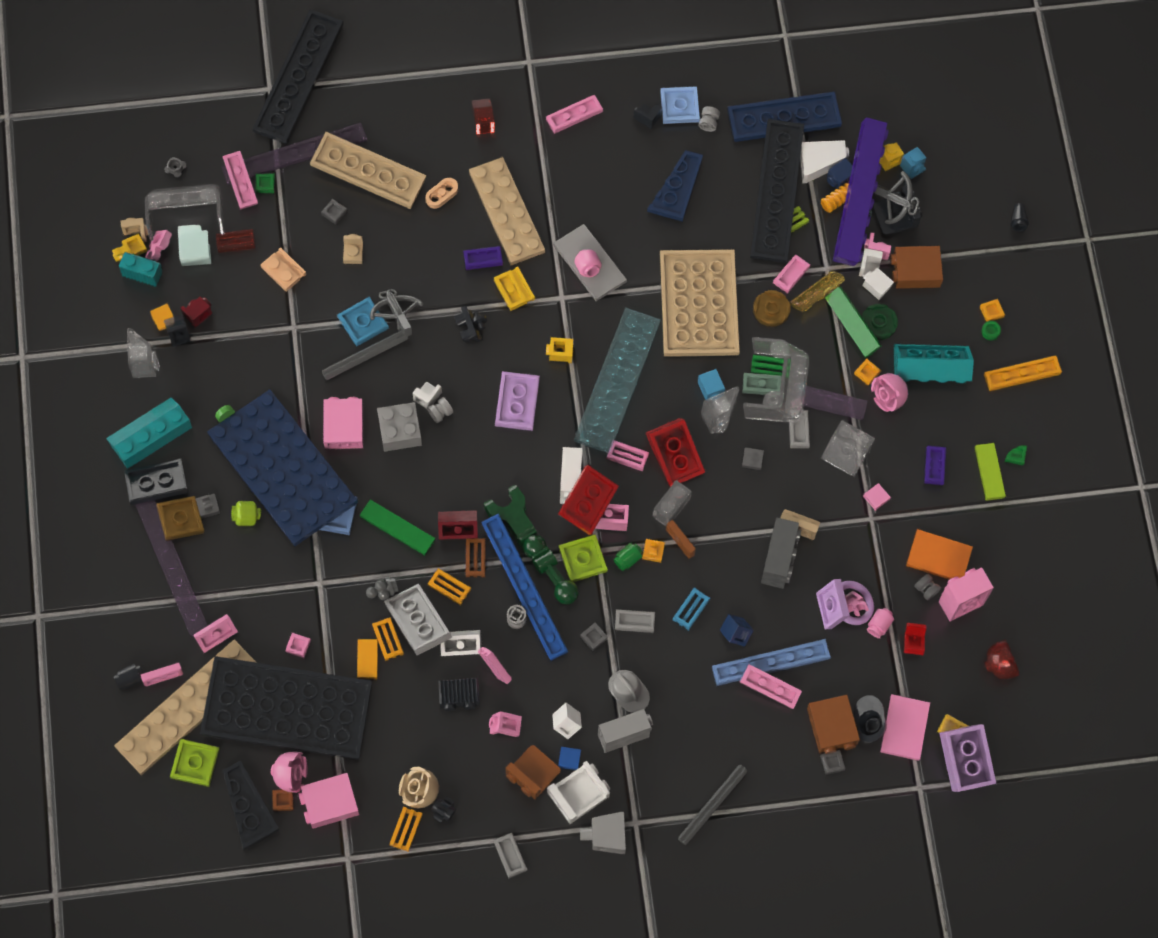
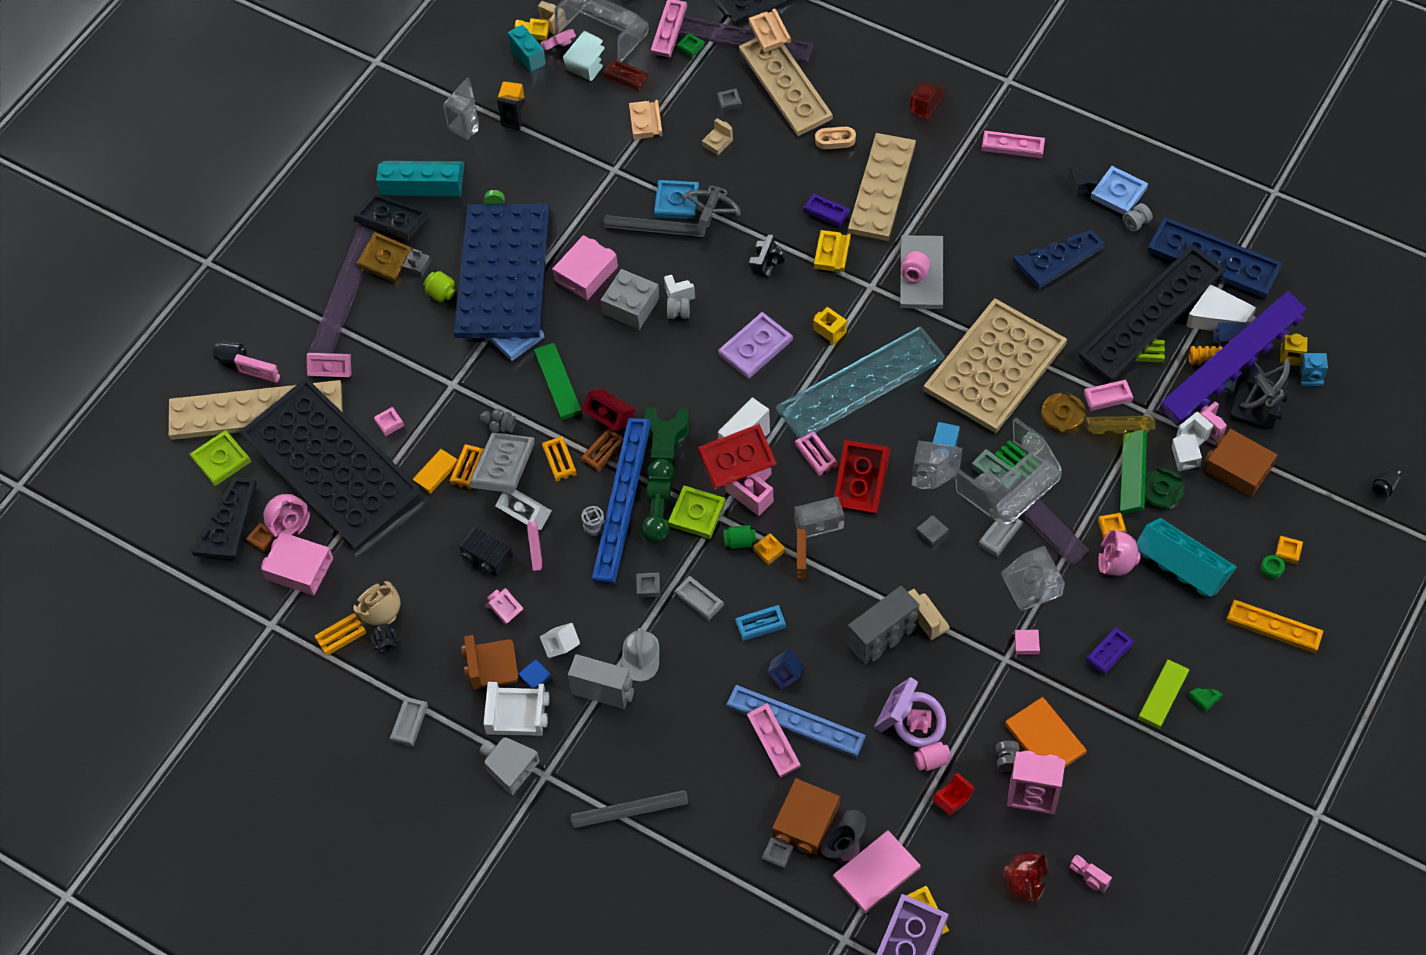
camera: 45 degrees right, 10 degrees down
(197, 311) = (544, 107): dark red brick -> none
(326, 135) = (769, 30): none -> light nougat plate
(1043, 630) = (1094, 877): none -> bright pink plate

